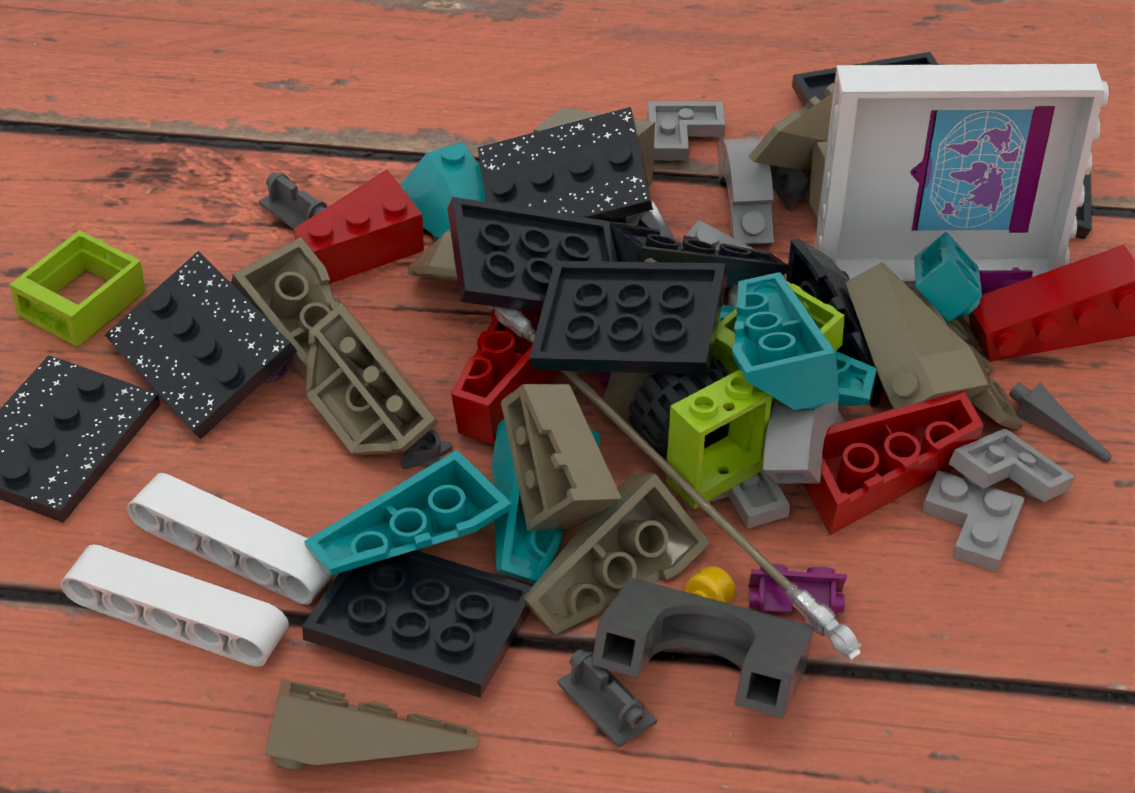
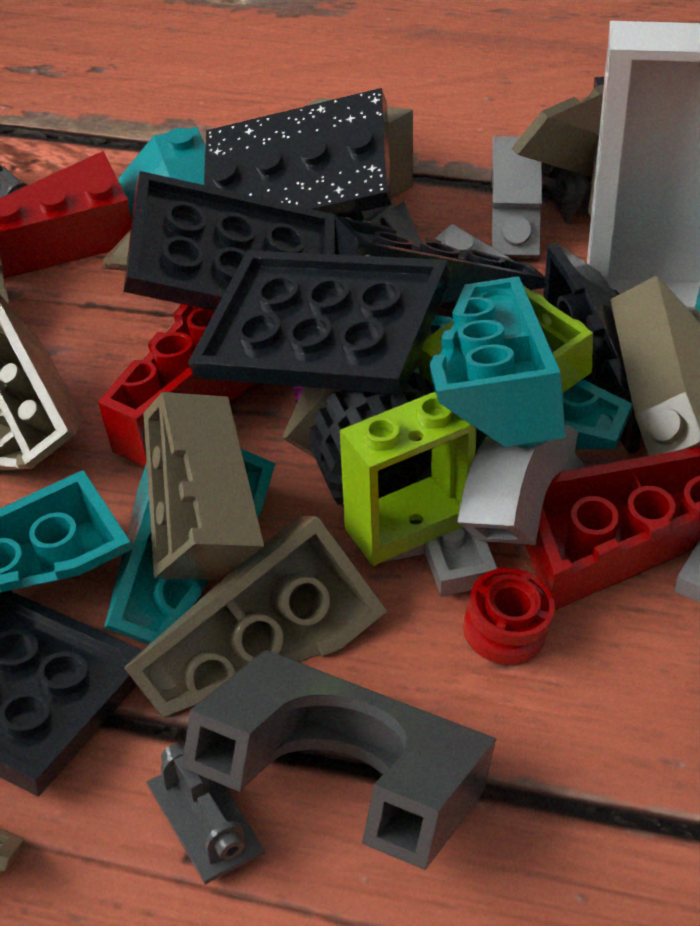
camera: 10 degrees right, 0 degrees up
(434, 449) = (66, 456): dark grey plate -> none
(680, 120) = (448, 120): light grey plate -> none
(712, 584) = (379, 669): yellow piece -> none
(803, 537) = (508, 616): none -> red wheel
(814, 611) = (500, 718): piece -> none
(819, 581) = (511, 683): magenta hinge -> none

